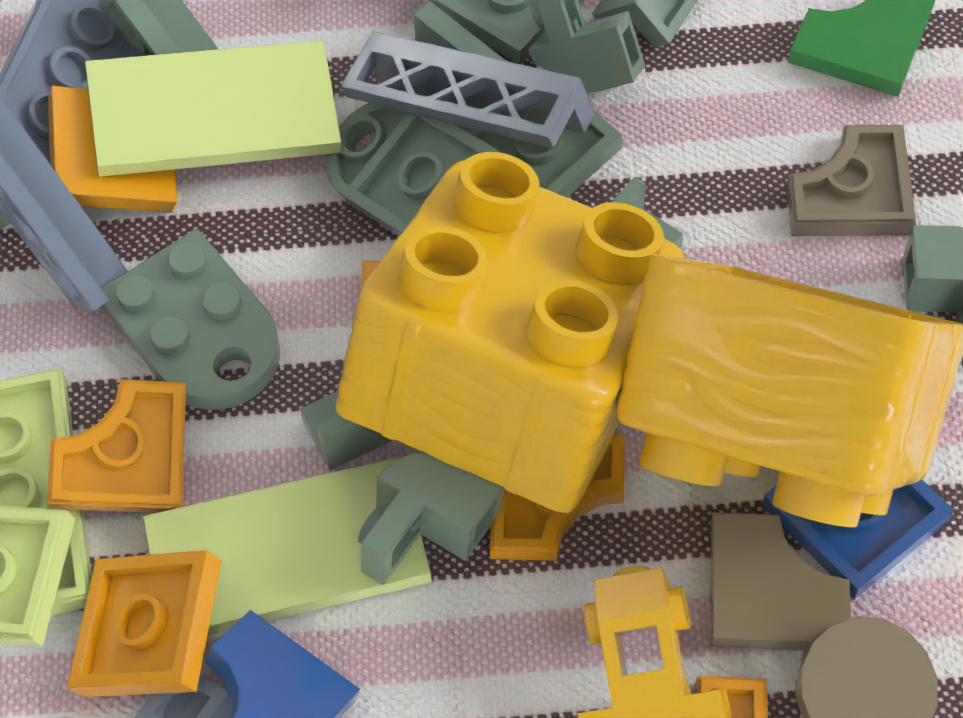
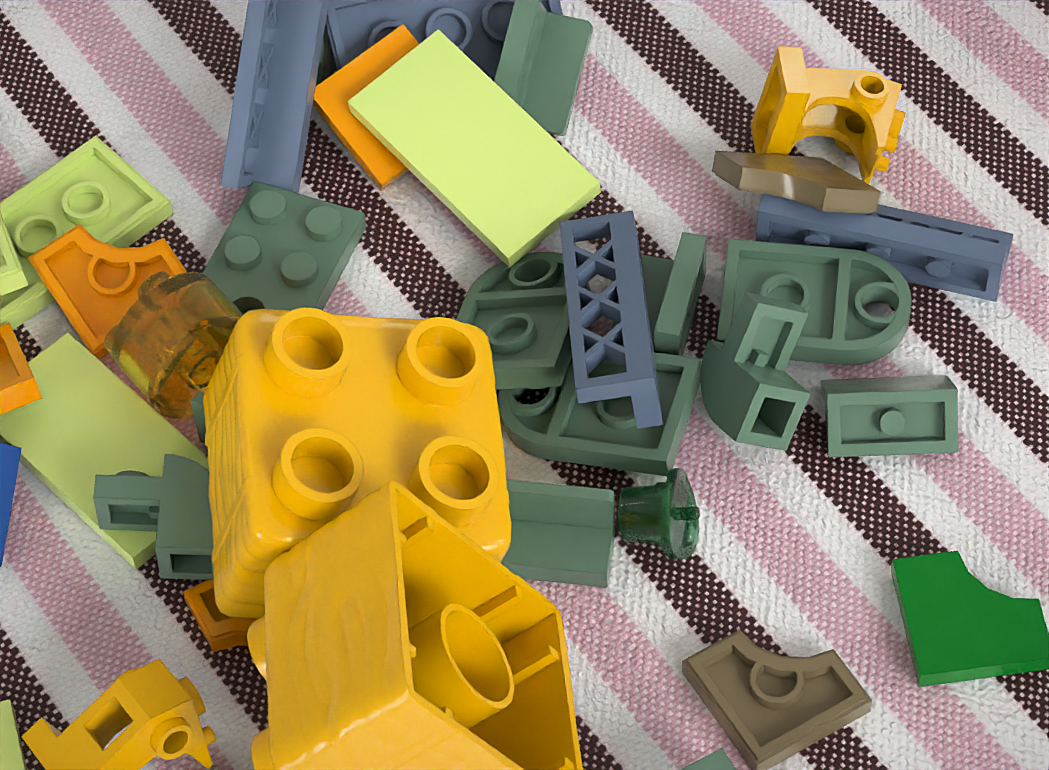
camera: 60 degrees right, 5 degrees down
(248, 416) = (173, 339): none -> clear yellow brick
(659, 163) = (661, 515): none -> clear green piece

